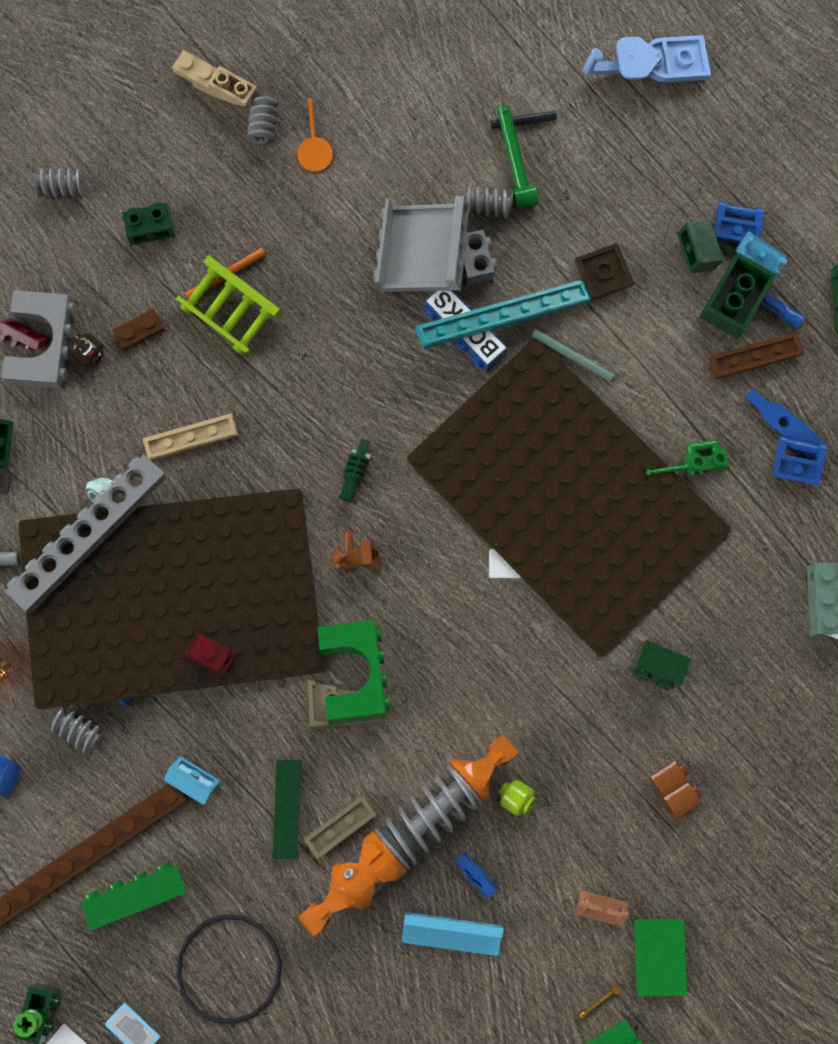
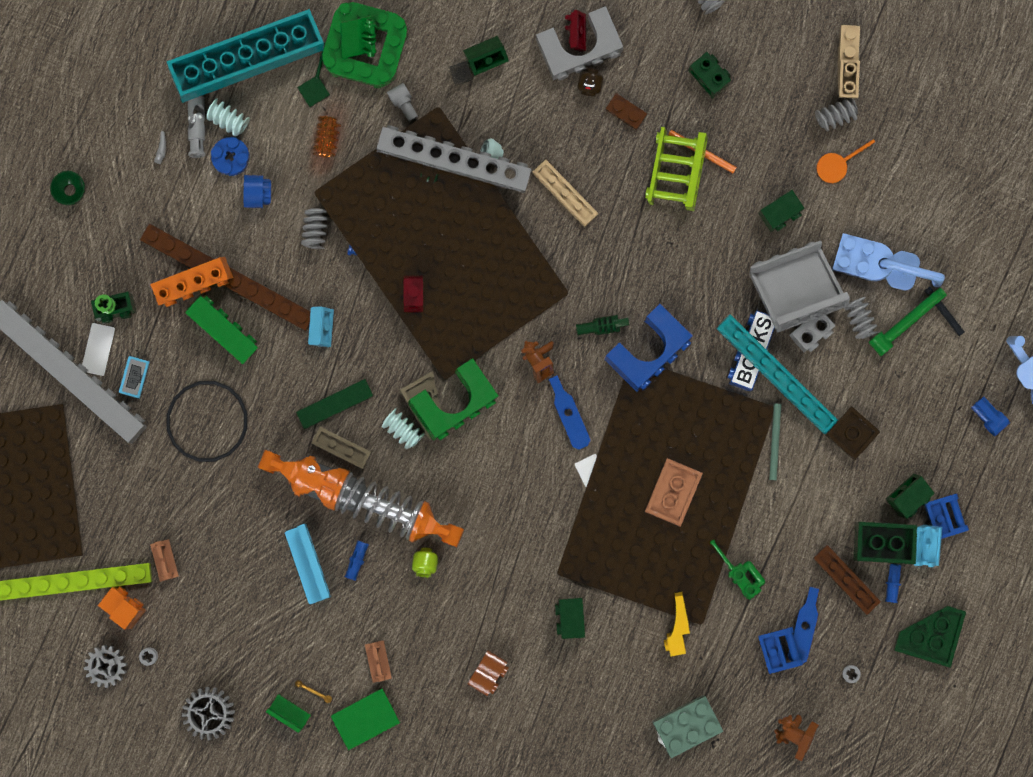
camera: 65 degrees right, 5 degrees up
(58, 904) = (191, 281): none -> orange brick
(332, 223) = (781, 211): none -> dark green brick
(356, 746) = (402, 429): none -> light aqua piece
(408, 401) = (638, 372): none -> blue arch
(427, 172) = (861, 258): none -> light blue plate
(445, 555) = (573, 424): none -> blue piece
(574, 486) = (673, 492): none -> nougat tile
(661, 127) = (993, 420): none -> blue piece
(725, 552) = (675, 640): none -> yellow slope

